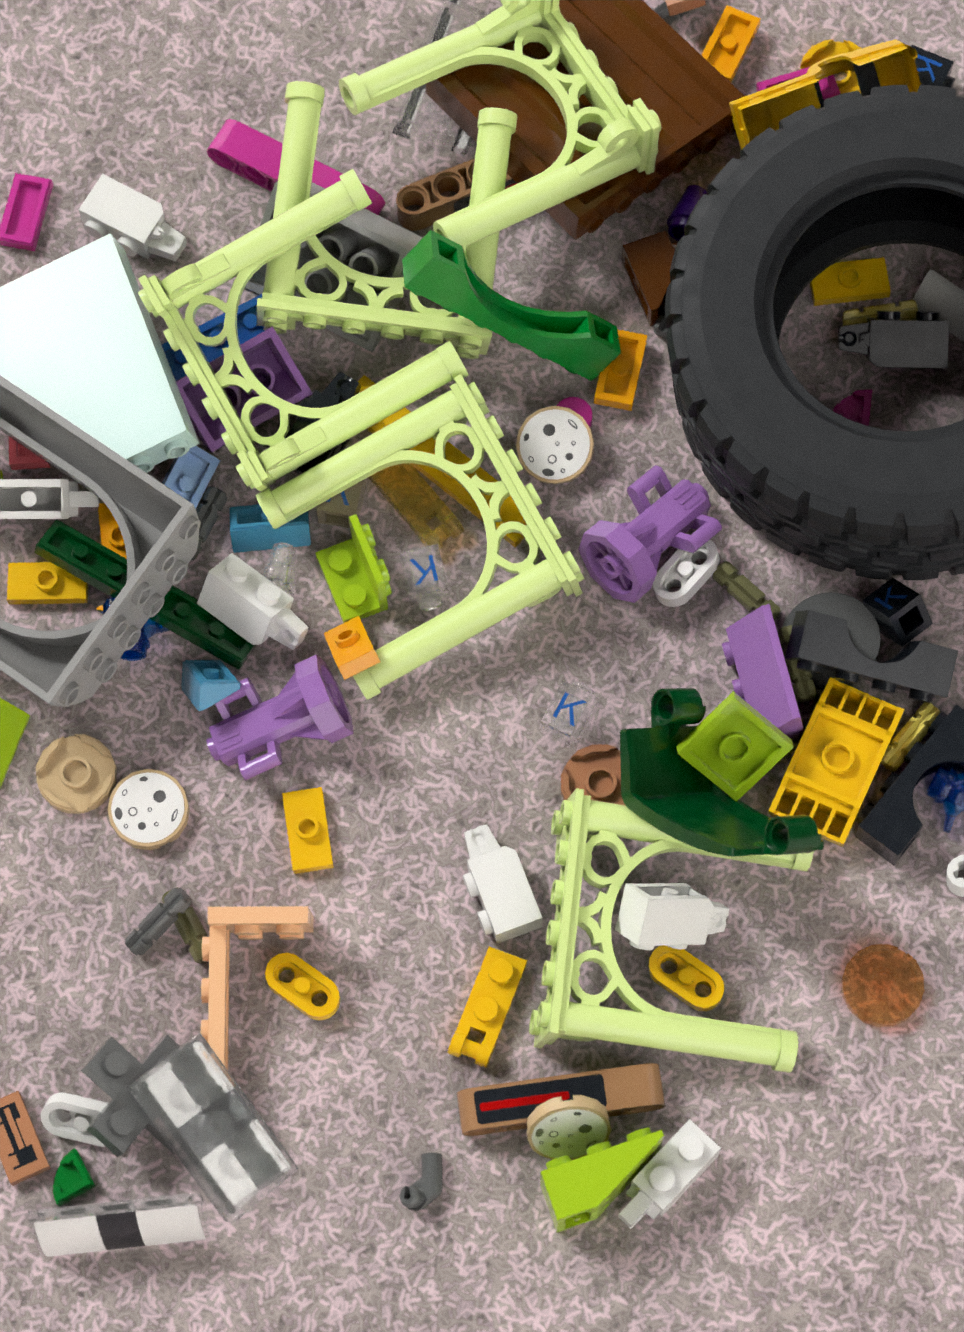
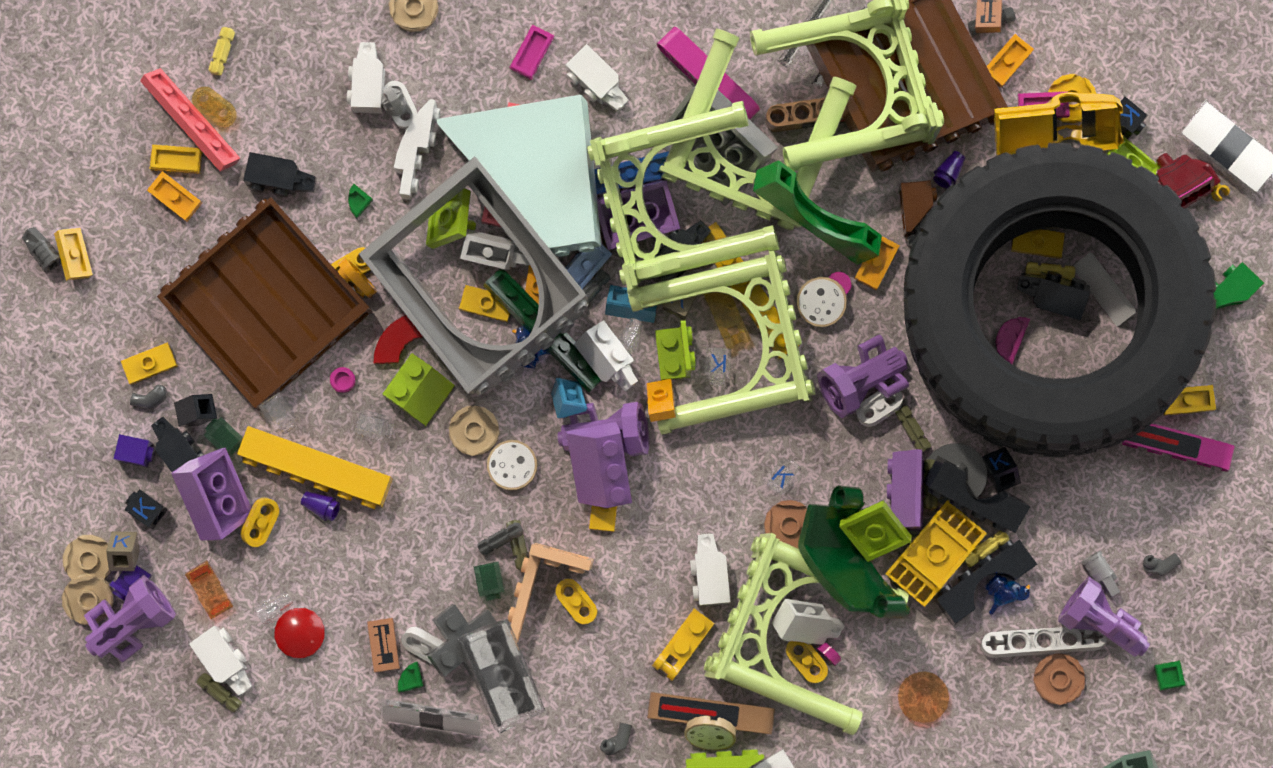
camera: 15 degrees right, 10 degrees up
(158, 991) = (489, 581): none -> clear green brick
(282, 763) = (599, 465): none -> medium lavender slope
(718, 957) = (829, 653): none -> dark pink tile

